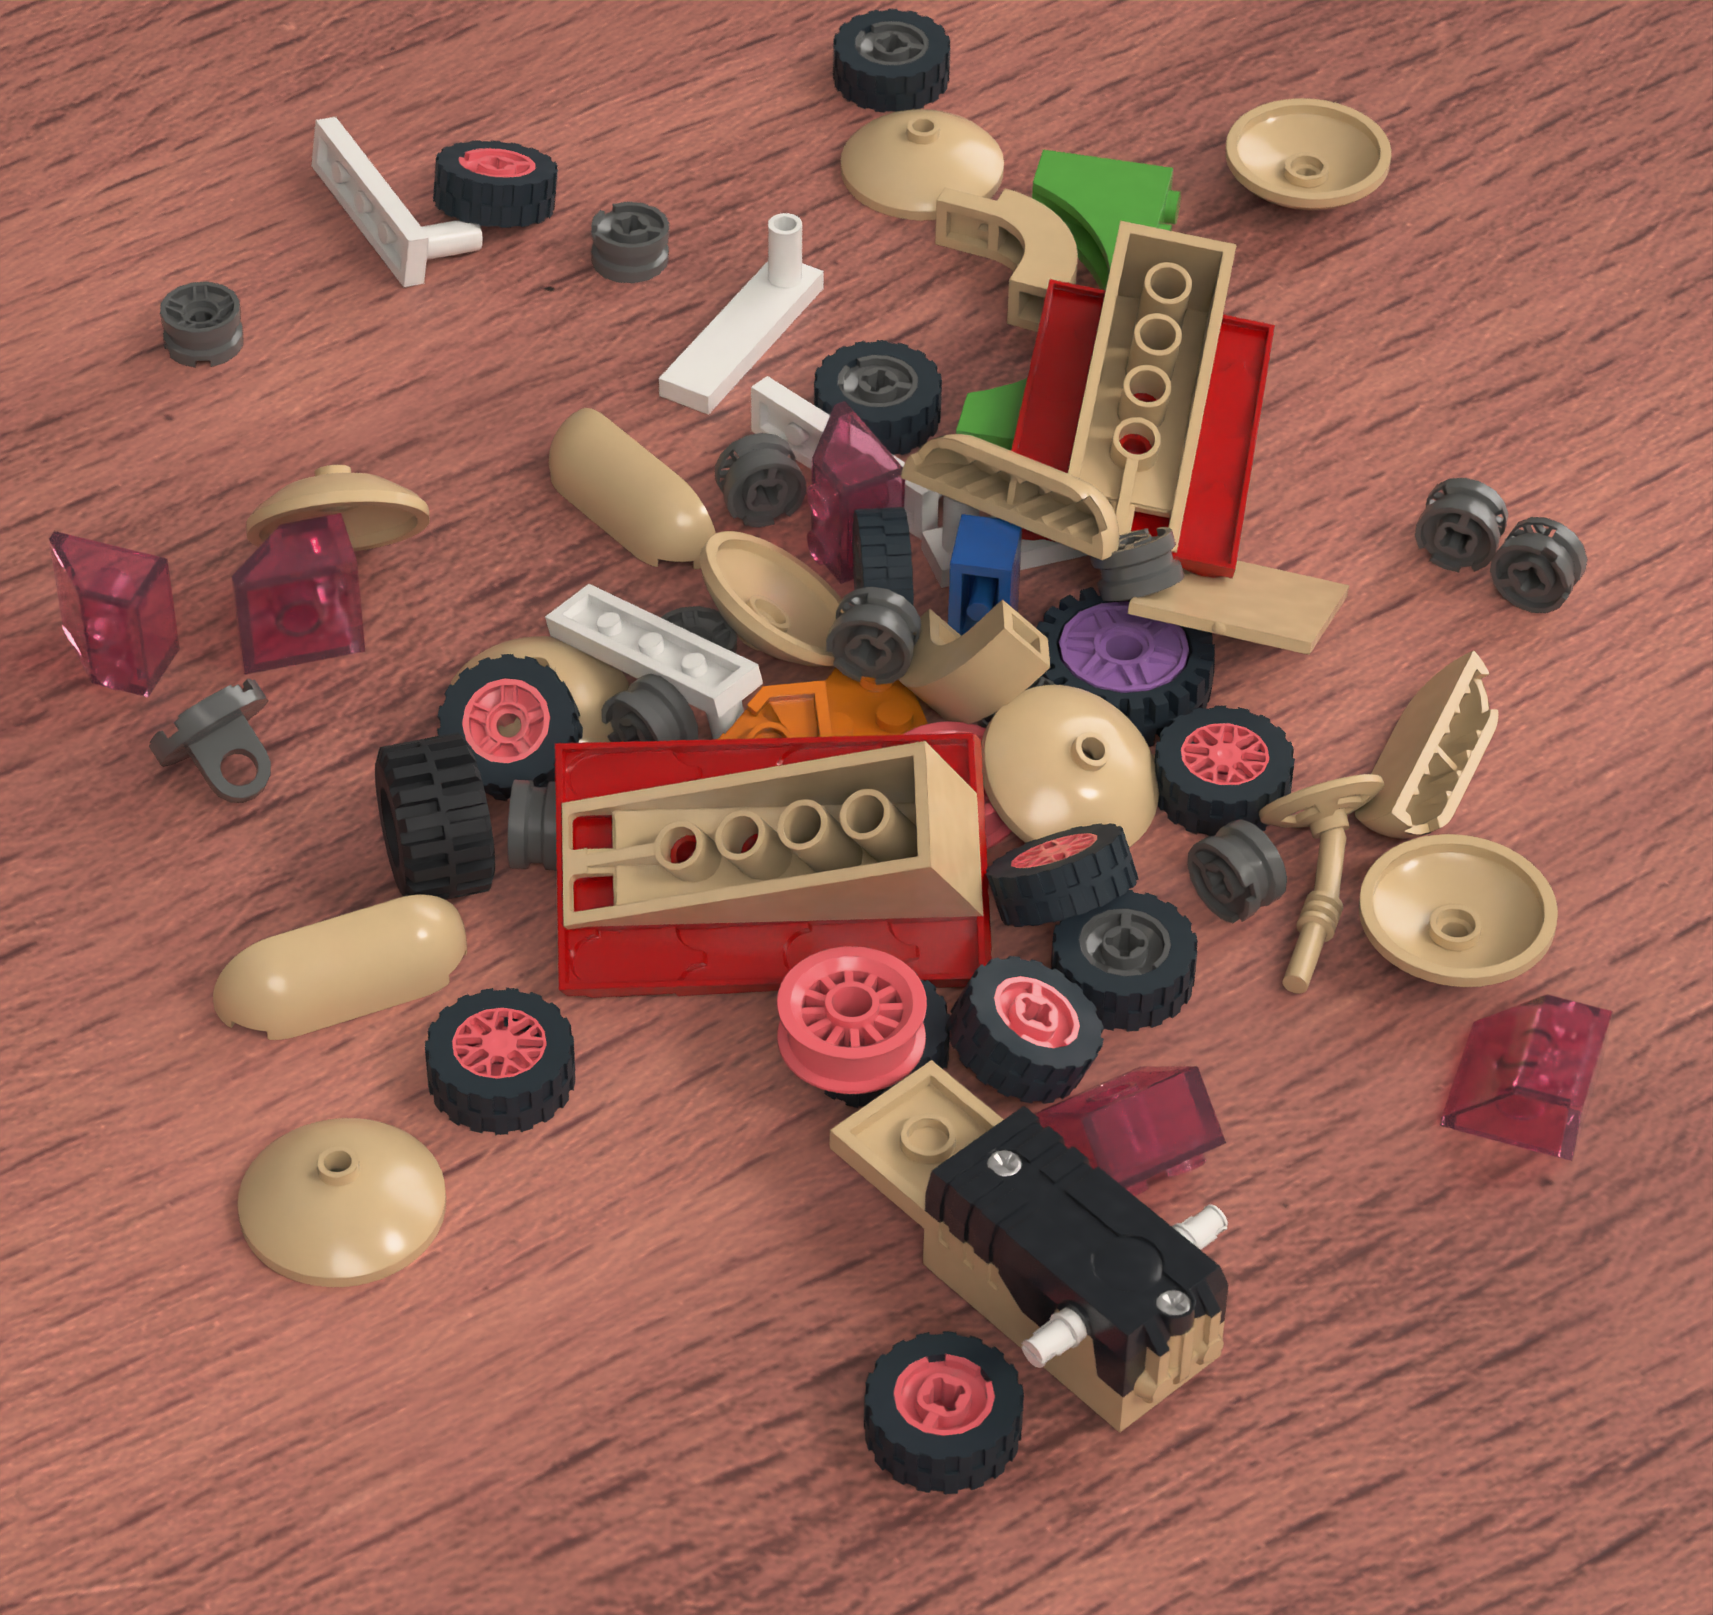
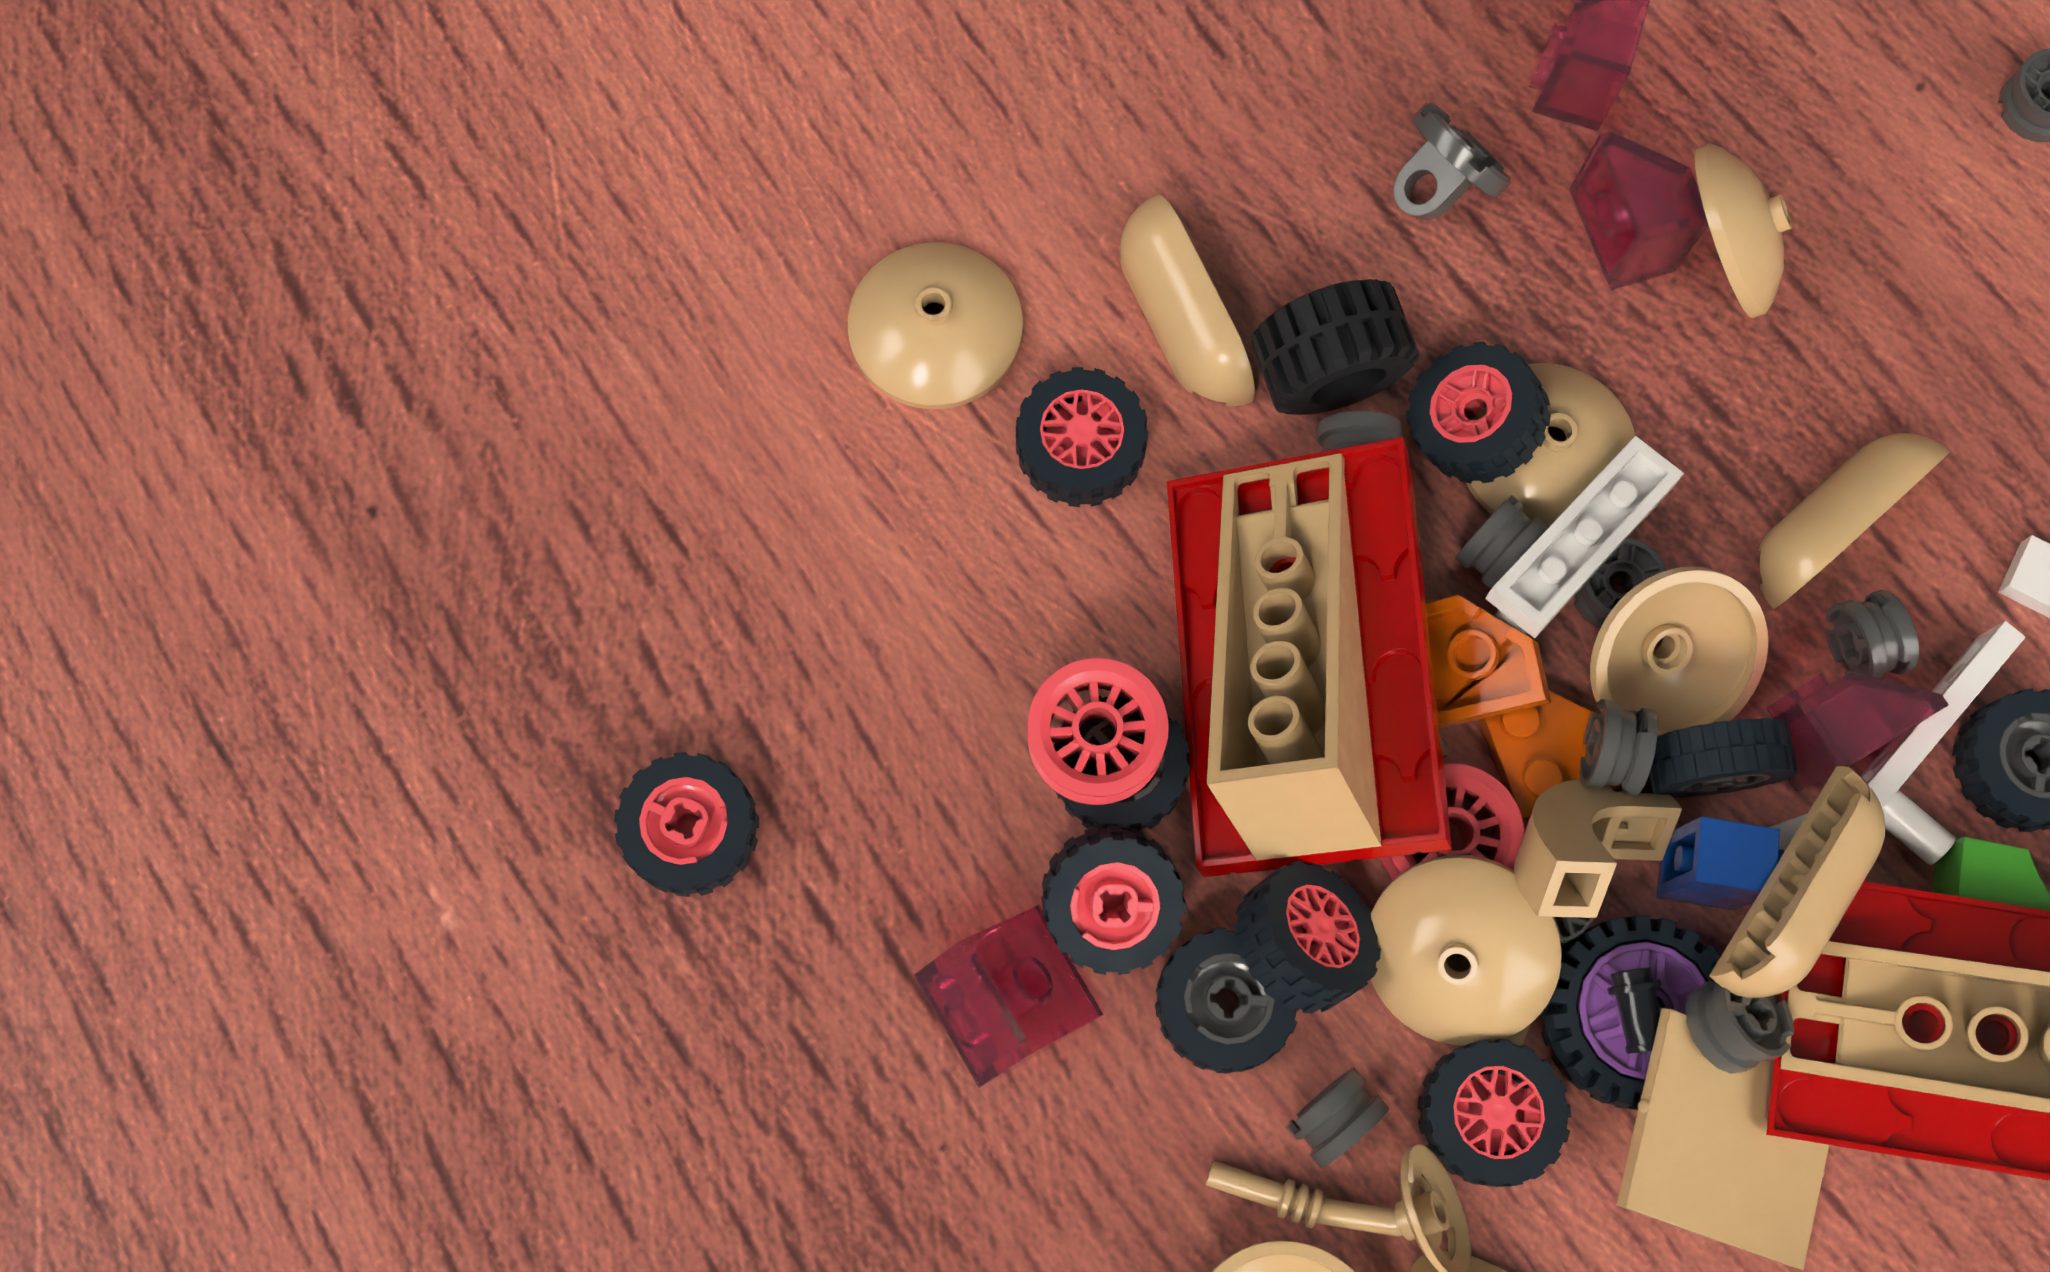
camera: 90 degrees right, 30 degrees up
(1046, 1243) = (837, 902): piece -> none
(1125, 638) = (1637, 1007): none -> black pin

